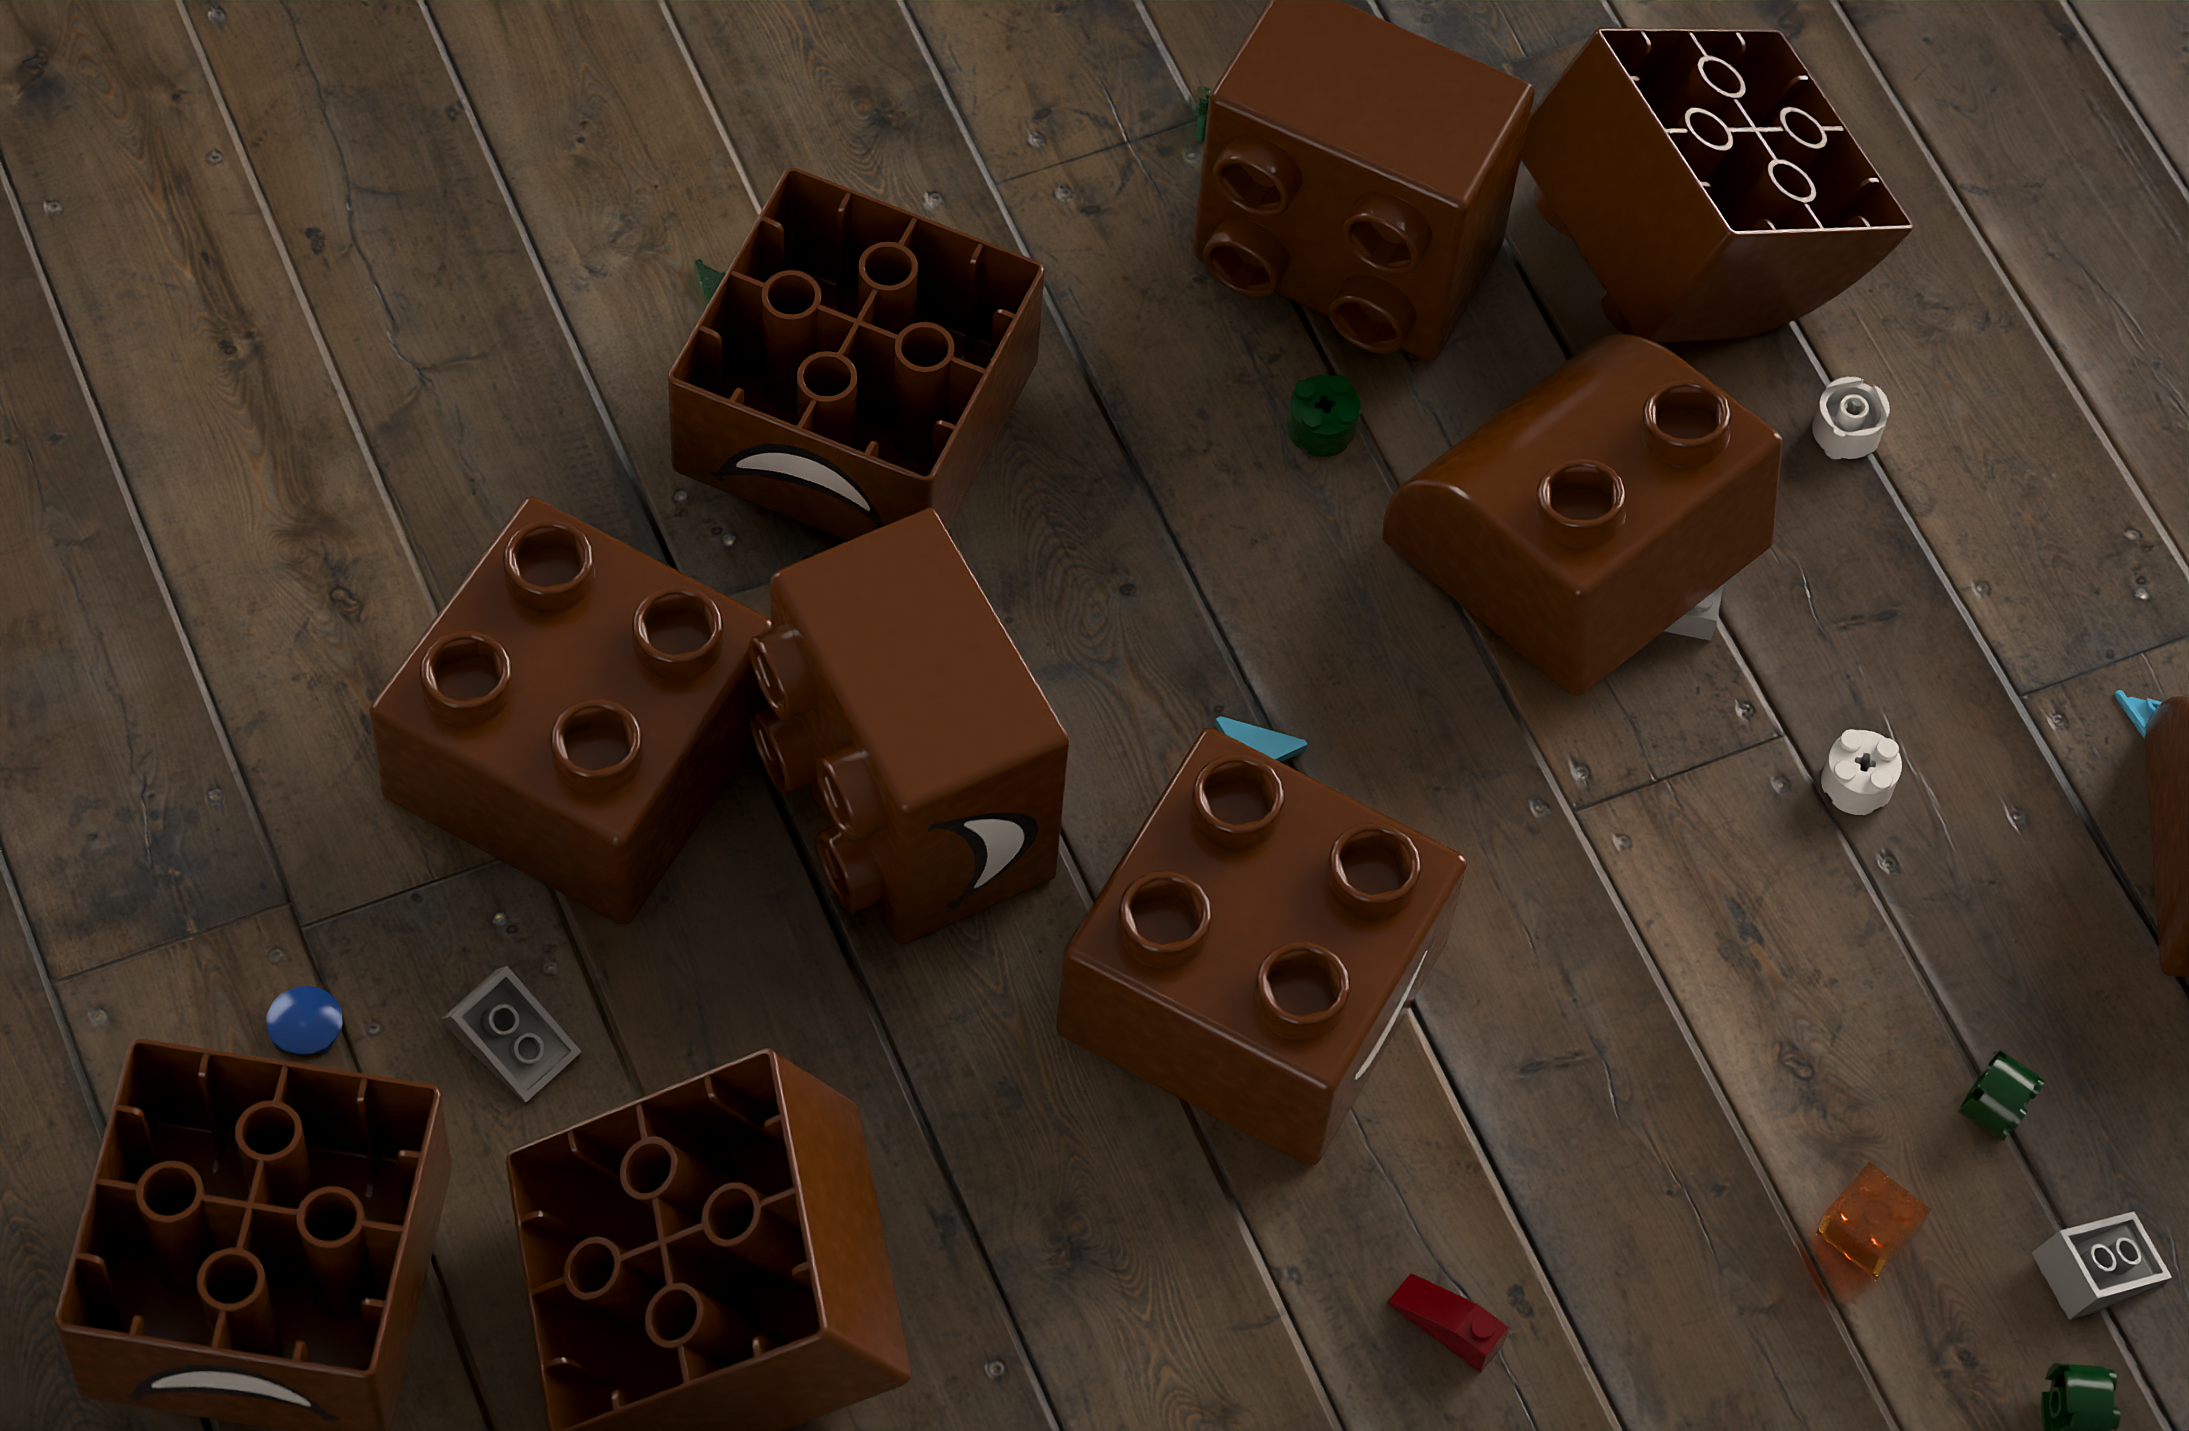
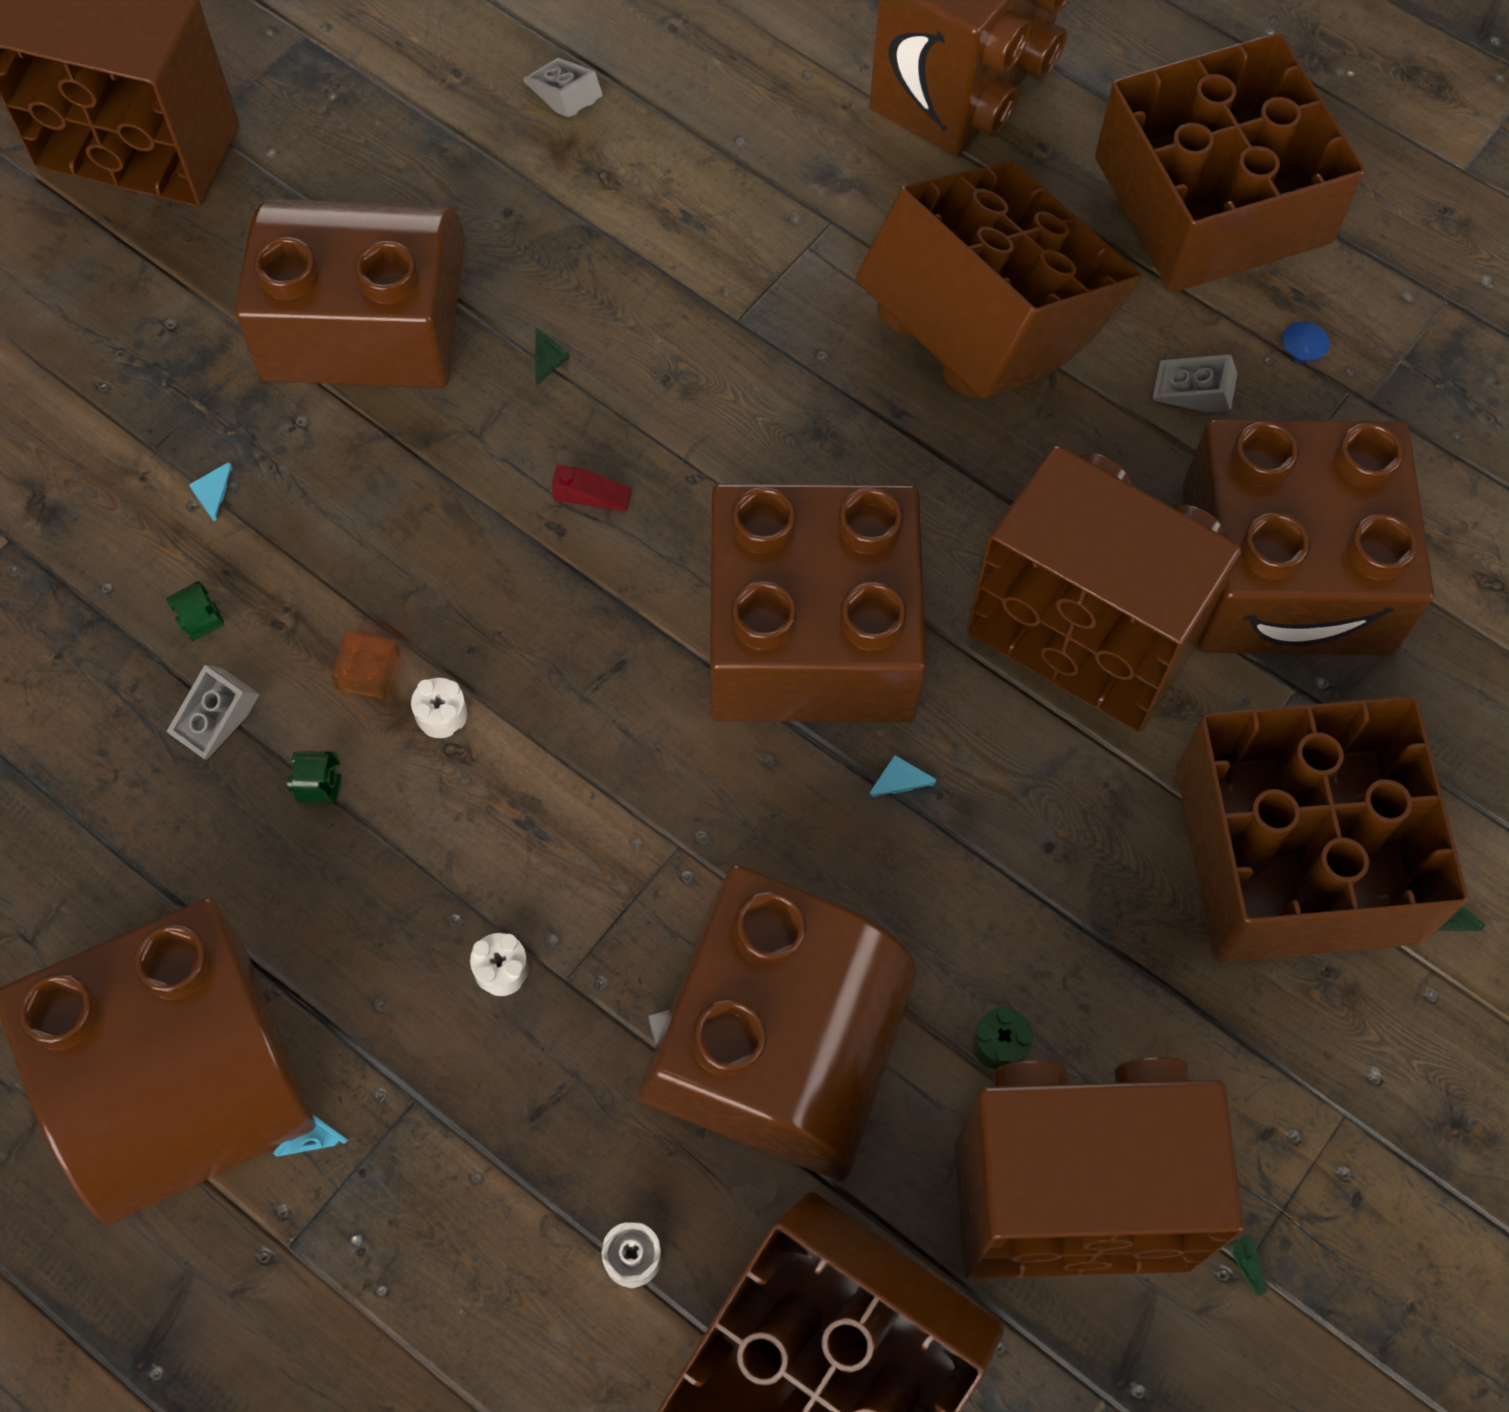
camera: 155 degrees right, 5 degrees up
(1800, 1112) = (439, 707): none -> white brick

